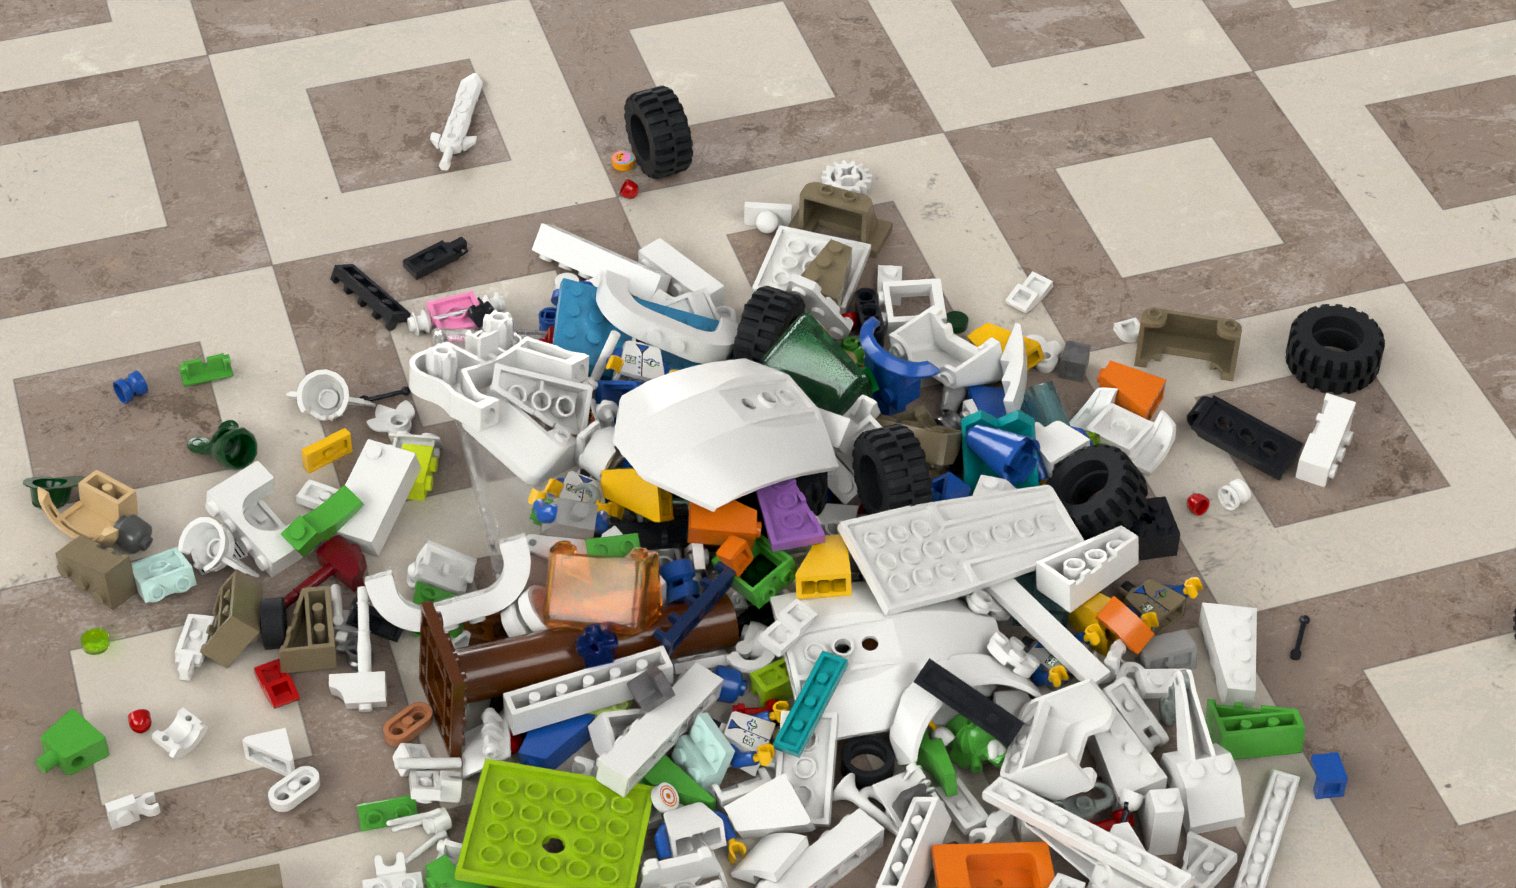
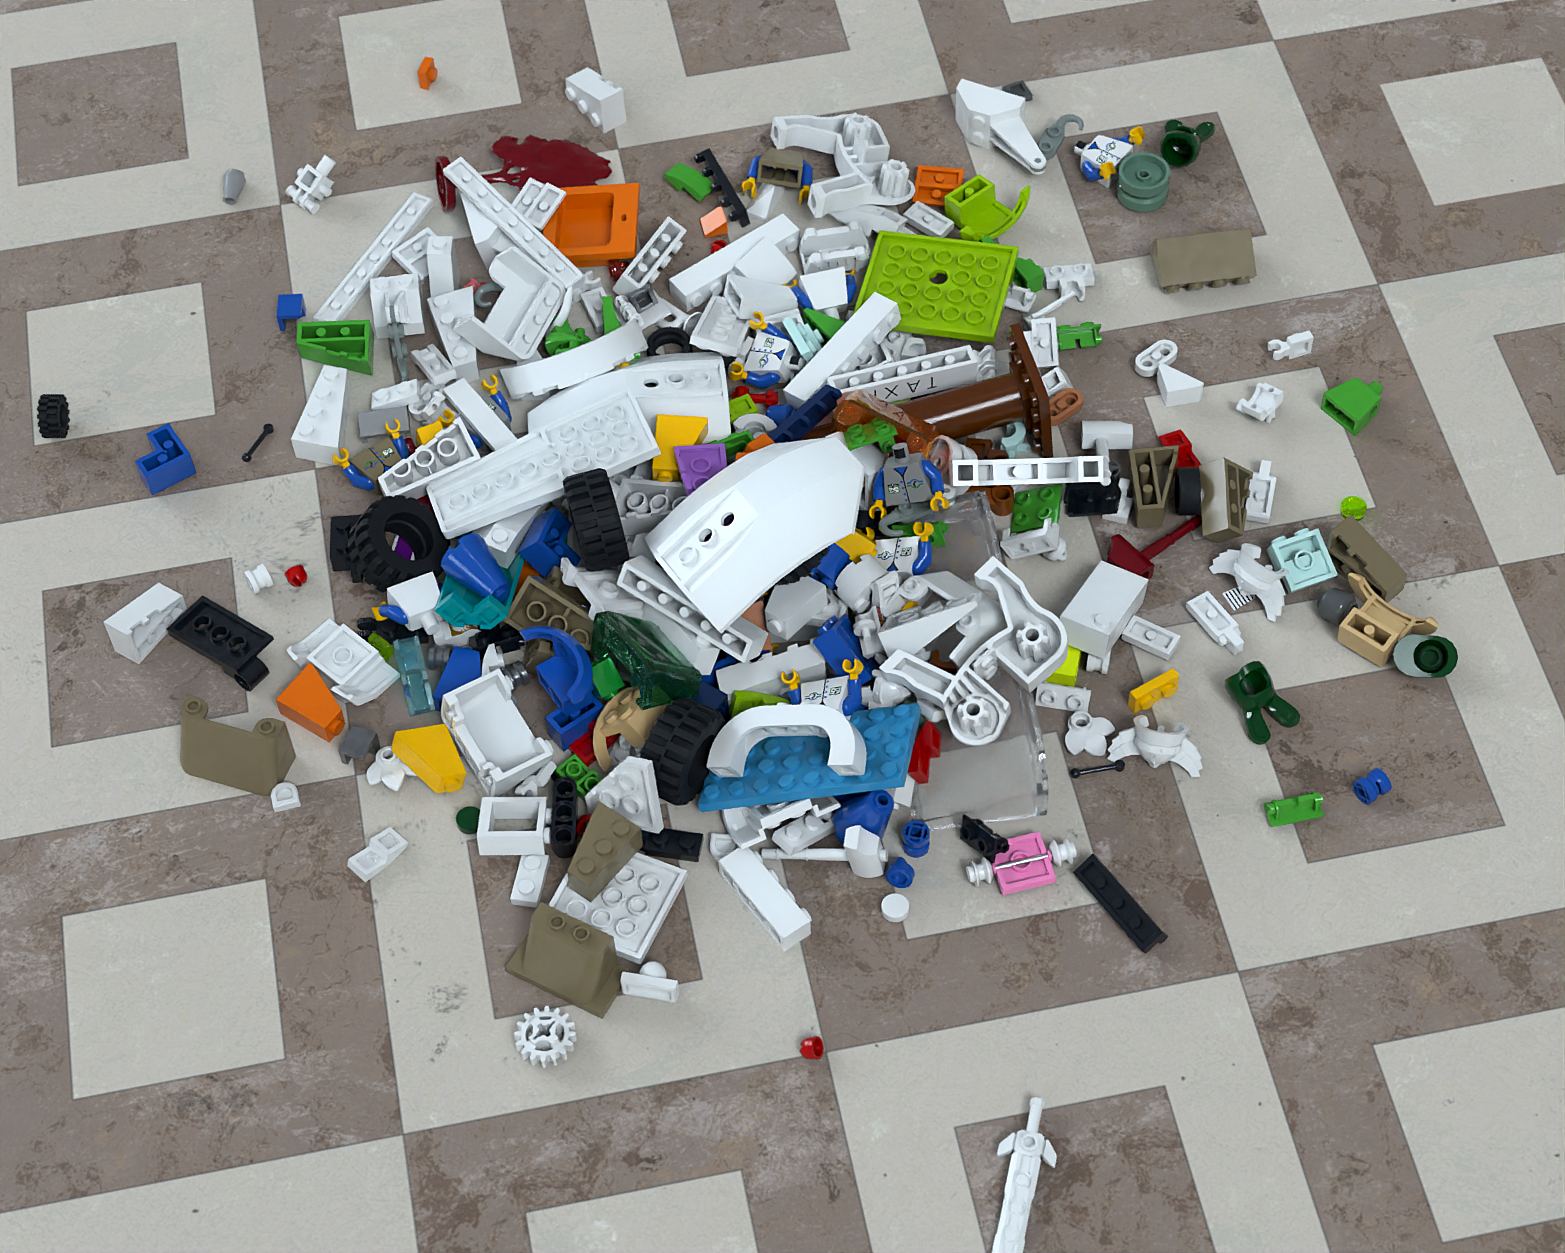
camera: 170 degrees left, 10 degrees up
(140, 720) = (1298, 426): red hinge -> none
(229, 503) = (1199, 574): white arch -> none
(323, 521) = (1151, 568): bright green slope -> none
(336, 603) = (1131, 517): white piece -> none
(428, 763) = (1053, 362): white piece -> none
(435, 257) = (1046, 952): black hinge -> none
(591, 259) = (855, 911): white brick -> none
(595, 654) = (883, 387): clear blue brick -> none
(606, 353) = (861, 696): white piece -> none
(623, 160) = (813, 1105): tile -> none
(650, 689) = (845, 361): flat silver panel -> none
(658, 132) = (768, 1077): black tyre -> none
(664, 797) = (845, 310): white tile -> none
(788, 628) = (722, 387): white slope -> none
(810, 704) = (712, 340): teal tile -> none
(969, 702) = (575, 327): black hinge -> none
(1012, 652) = (515, 394): white plate -> none
(1014, 370) = (431, 697): white slope -> none
(1125, 625) = (418, 416): orange slope -> none
(1129, 802) = (465, 275): white hinge -> none
(1333, 369) = (70, 707): black tyre -> none
(1384, 592) = (168, 461): none -> blue brick

